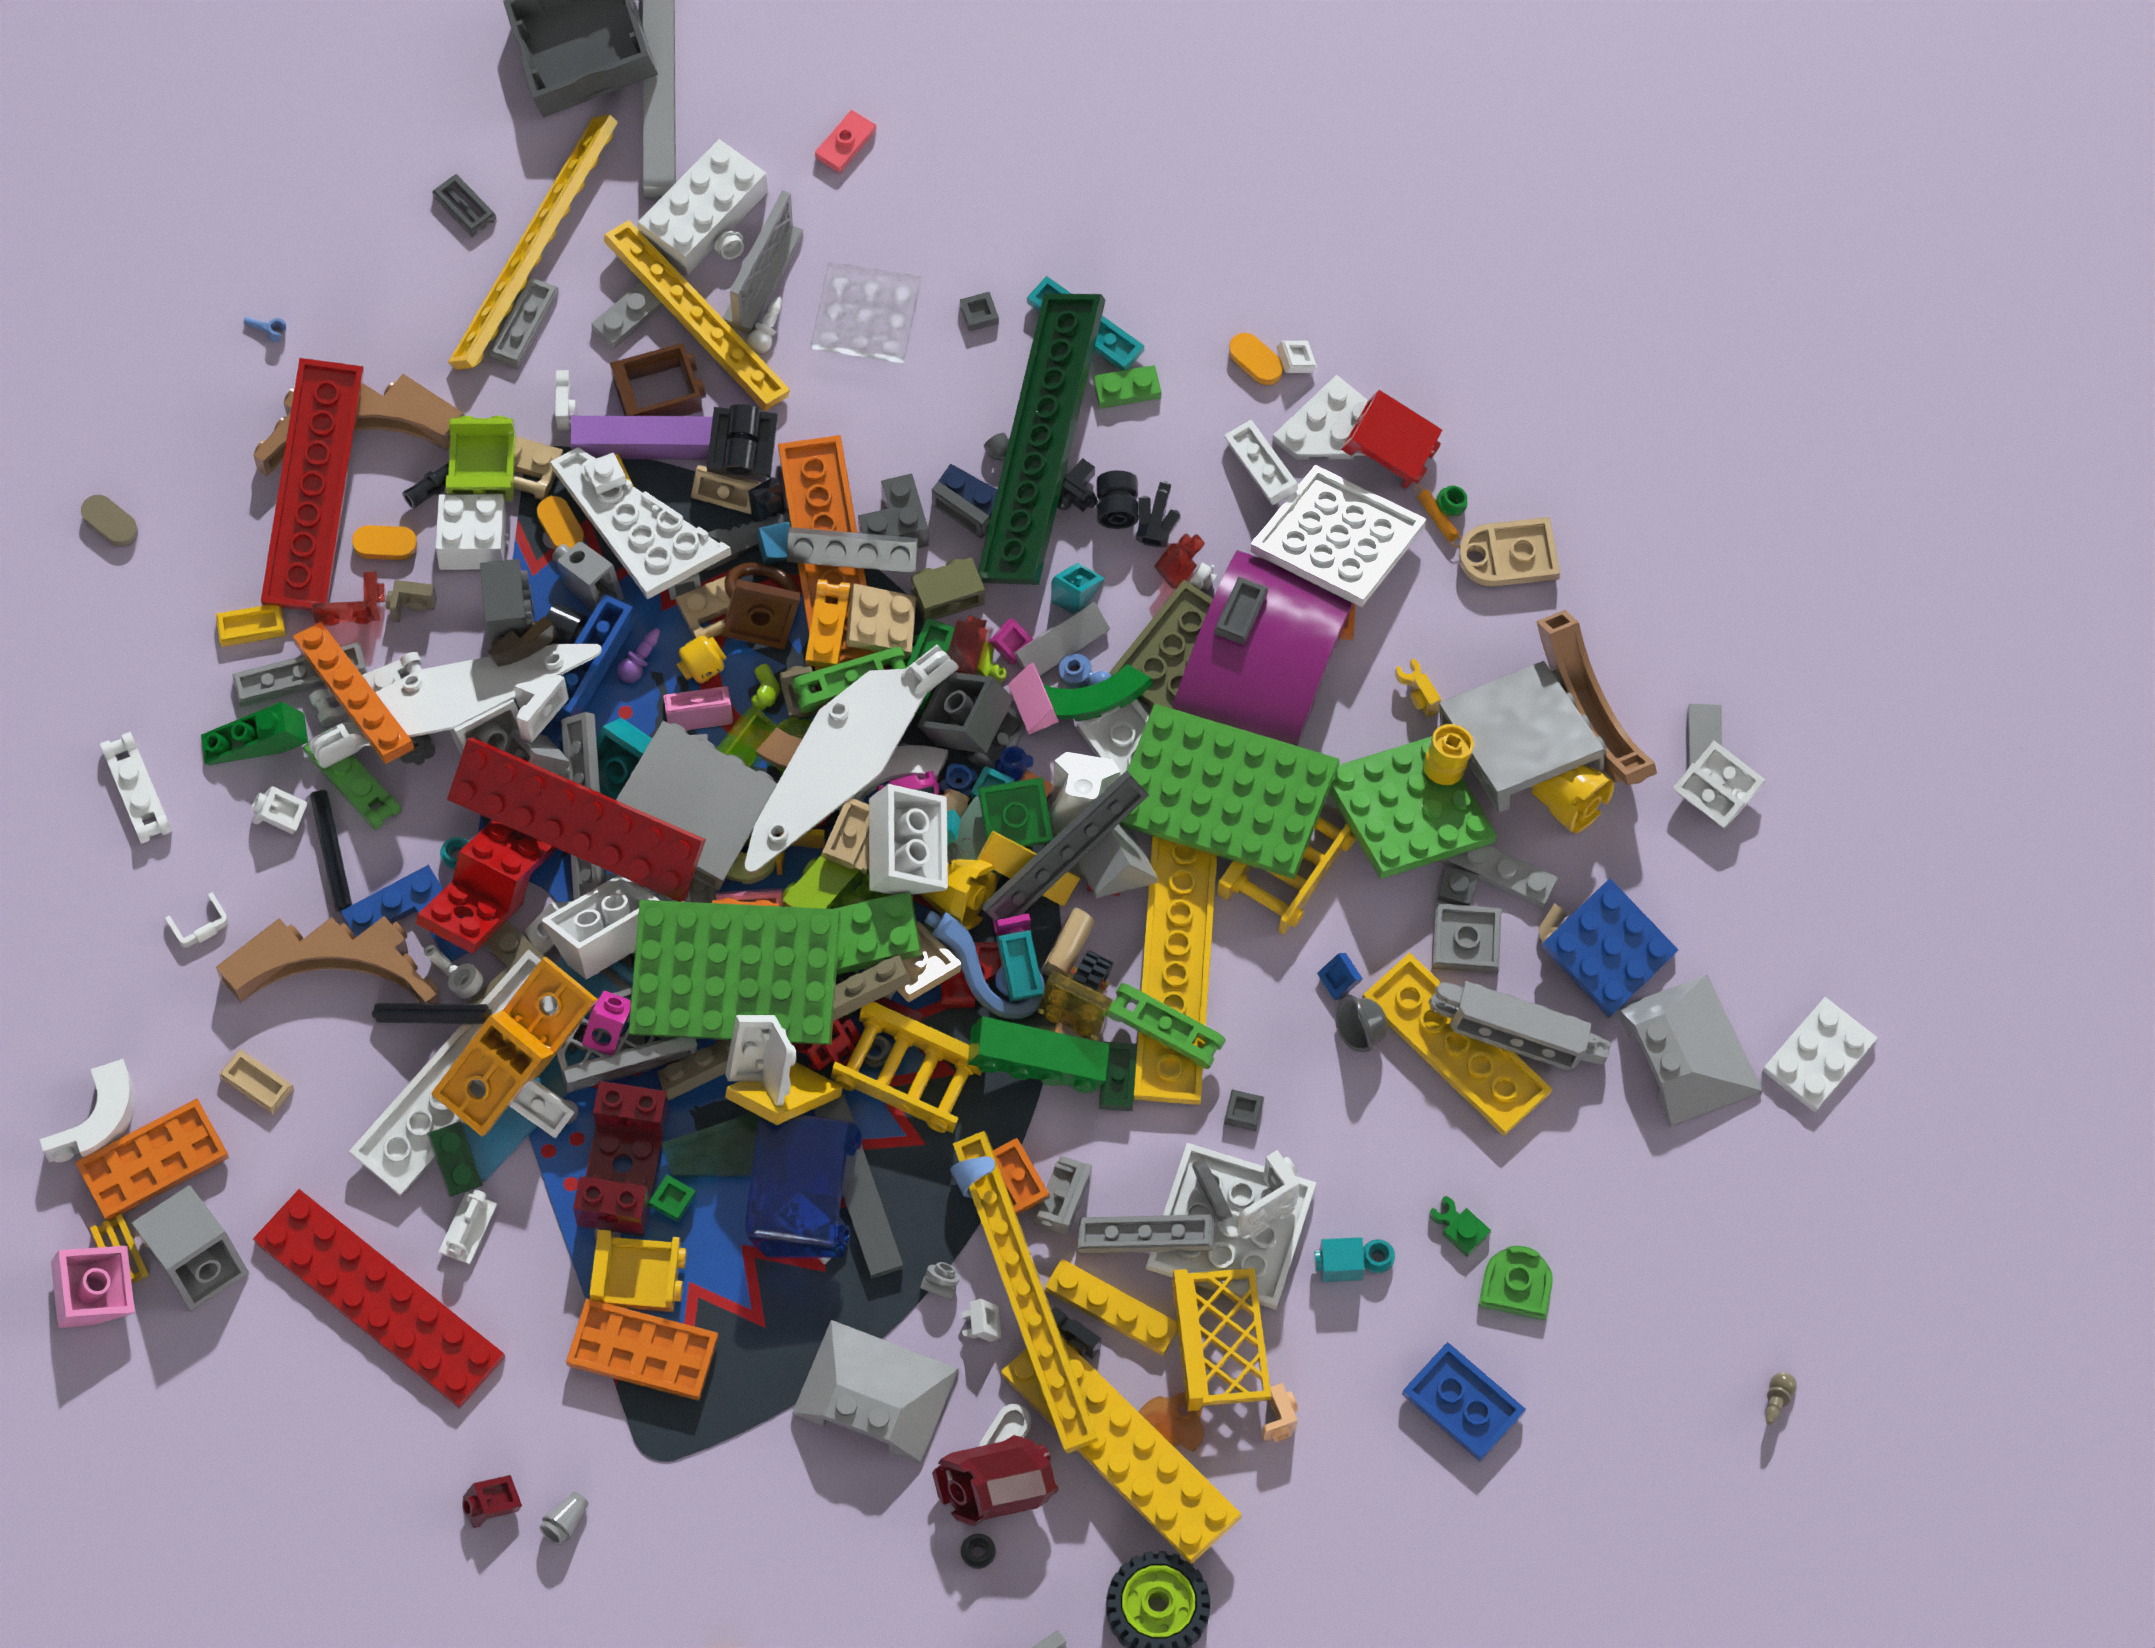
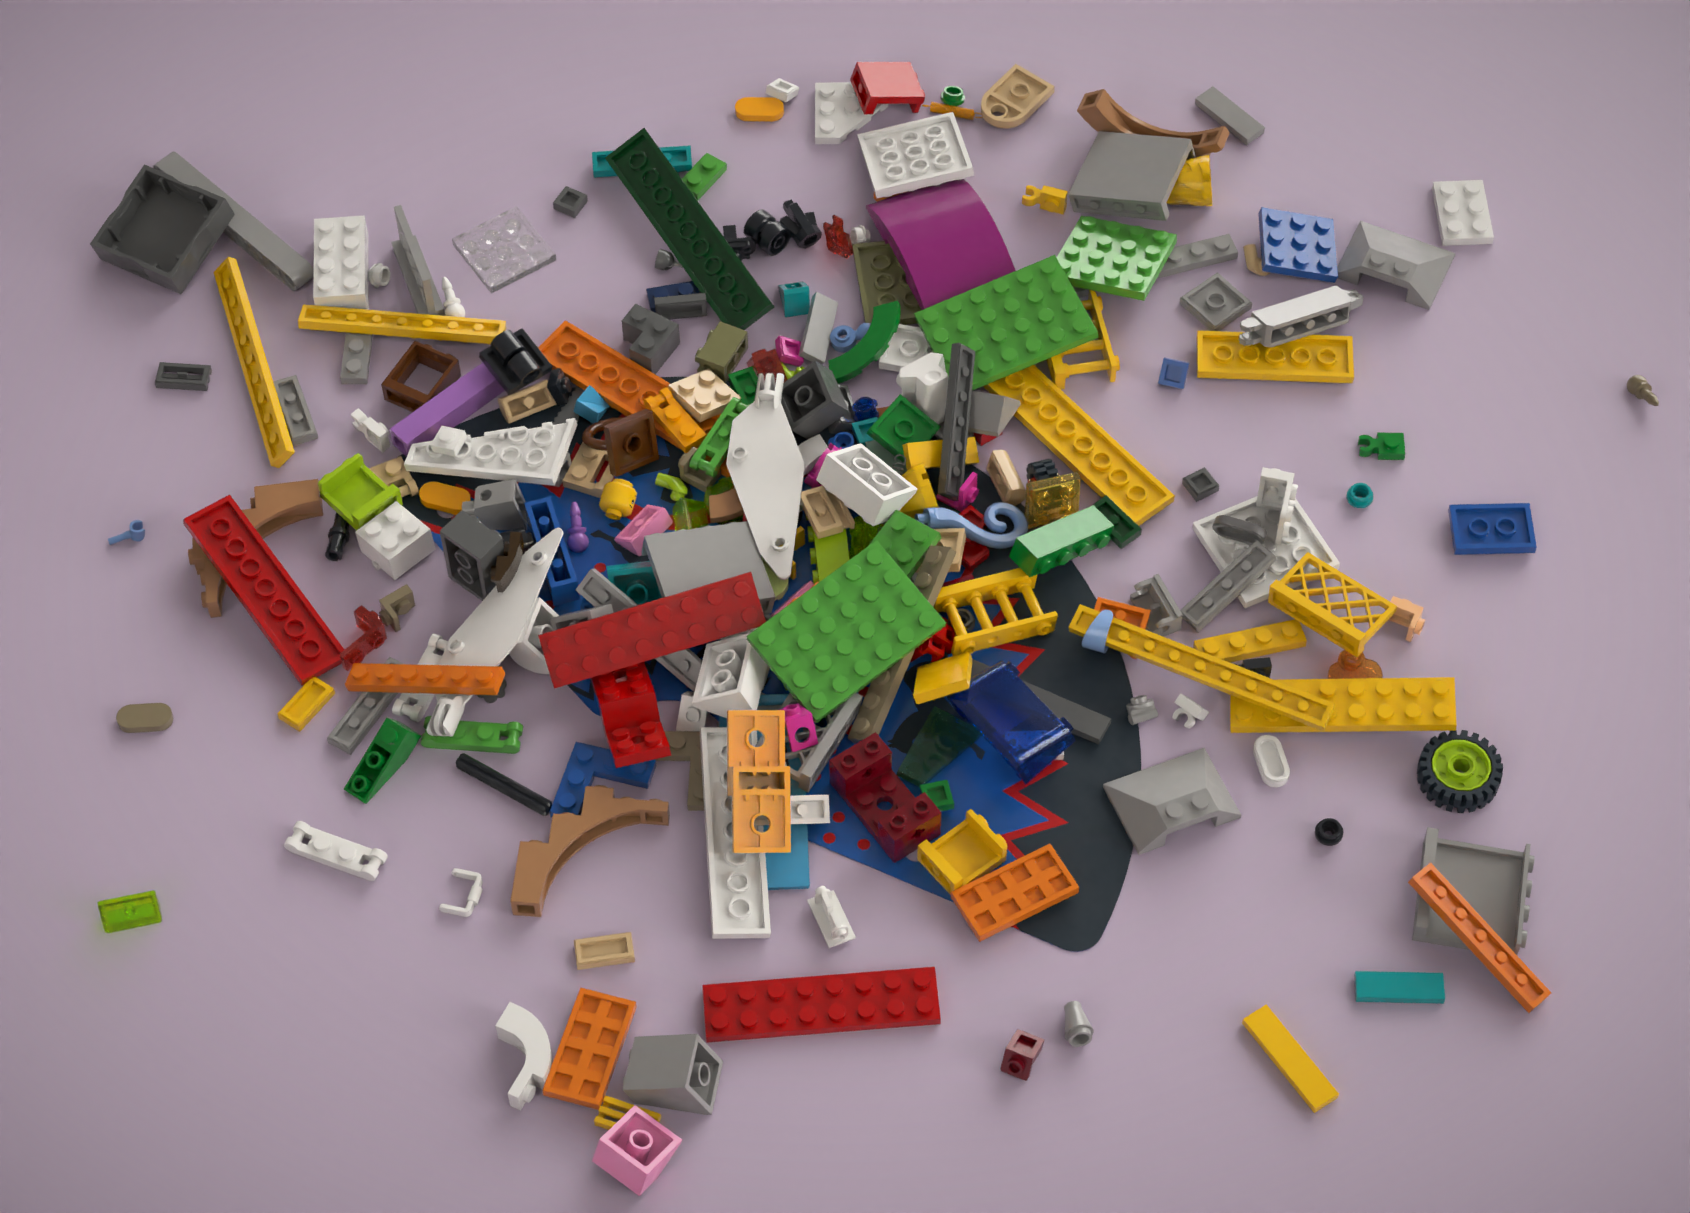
camera: 40 degrees left, 10 degrees down
(278, 809) = (444, 786): white bracket -> none
(384, 542) = (342, 592): light orange tile -> none
(431, 1013) = (678, 814): black axle -> none
(450, 846) = (585, 715): teal plate -> none
(454, 1159) = (782, 884): dark green plate -> none
(463, 979) = (668, 784): white plate -> none
(539, 704) = (556, 585): white slope -> none
(761, 1054) = (919, 657): white bracket -> none
(845, 141) = (387, 173): coral plate -> none
(852, 549) = (646, 369): plate -> none
(995, 1479) = (1300, 780): dark red brick -> none
(1020, 966) = (996, 506): teal tile -> none
(1032, 700) = (846, 366): bright pink slope -> none
(1166, 1025) = (1116, 469): bright green plate -> none
(1241, 610) = (913, 223): dark grey tile -> none
(1261, 462) = (827, 153): white plate -> none
(1340, 1259) = (1344, 512): teal brick -> none
(1361, 1023) = (1214, 386): dark grey helmet -> none
(1448, 754) = (1108, 210): yellow wheel -> none
(1457, 886) = (1180, 281): dark grey plate -> none
(1517, 1283) = (1446, 449): bright green tile -> none
(1719, 784) = (1259, 121): white slope -> none

